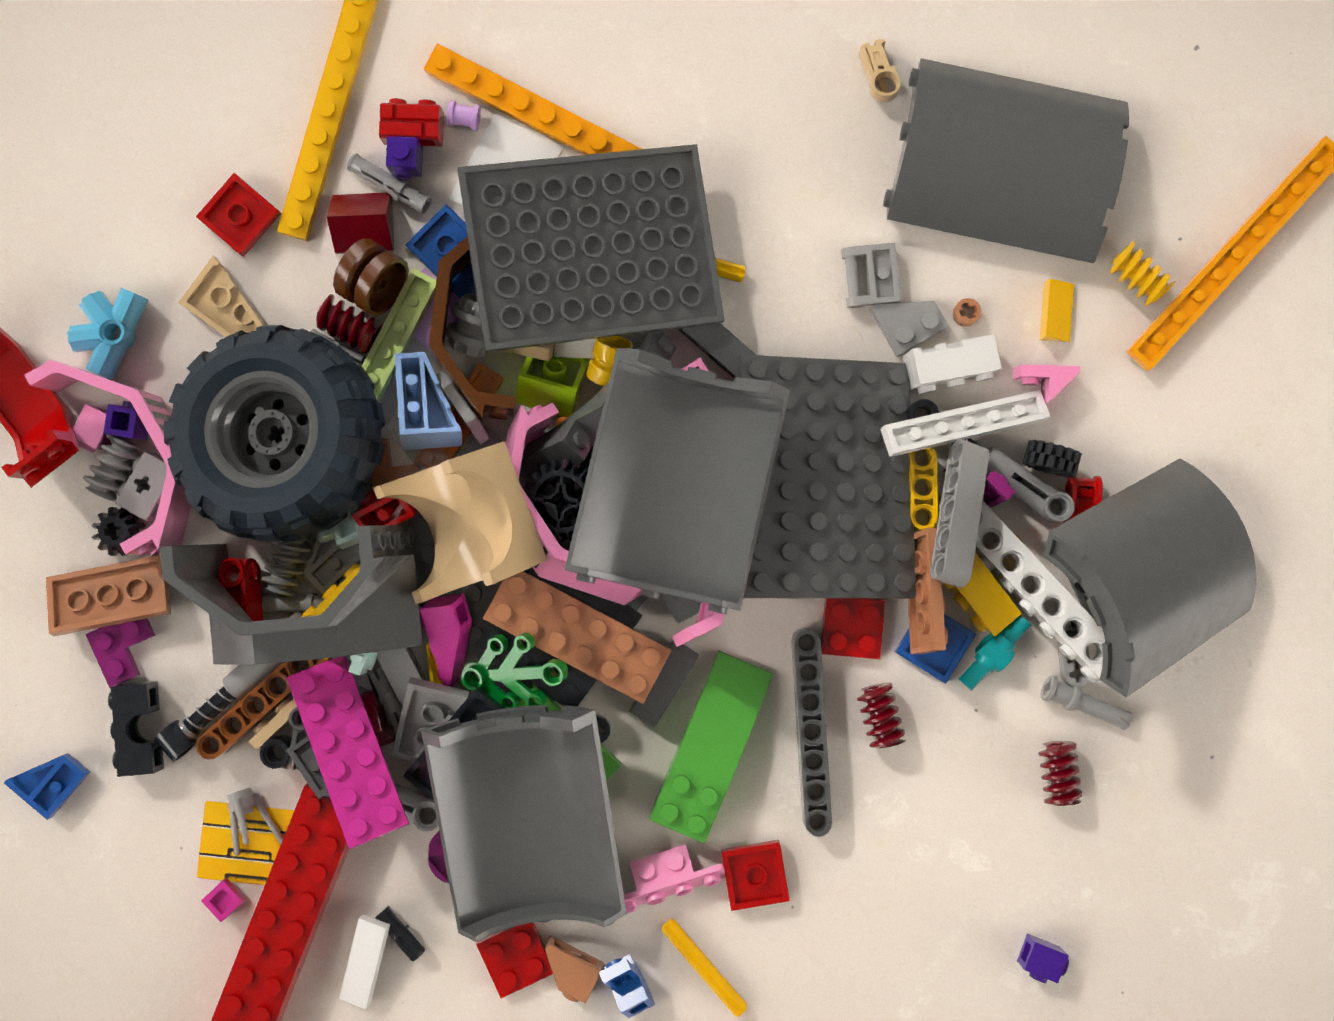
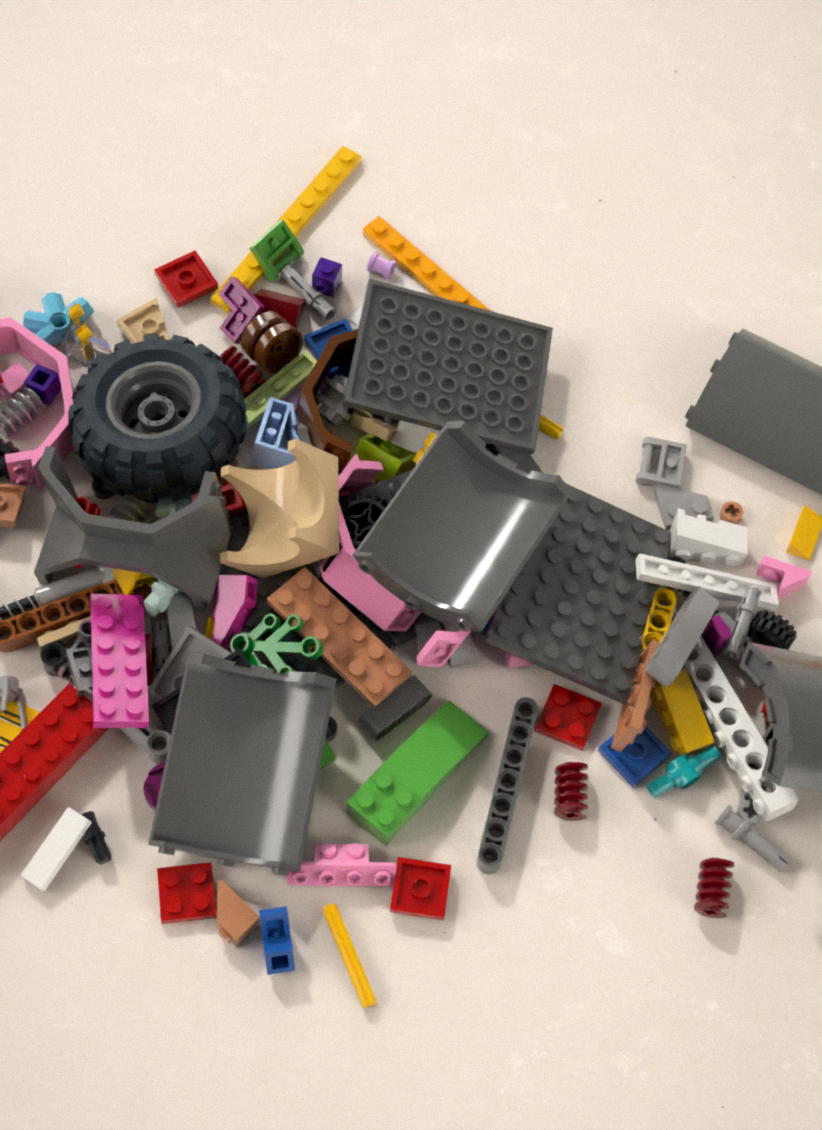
camera: 15 degrees right, 25 degrees down
(135, 494) = (34, 431): light grey brick -> none
(154, 357) = (81, 344): none -> clear torso
(323, 139) = (273, 244): none -> bright green plate
(323, 239) = (244, 309): none -> magenta plate
(418, 120) = (351, 257): red brick -> none
(877, 68) = (708, 328): tan piece -> none
(1019, 456) = (745, 613): none -> light grey pin
(1043, 959) = (657, 1044): dark purple brick -> none

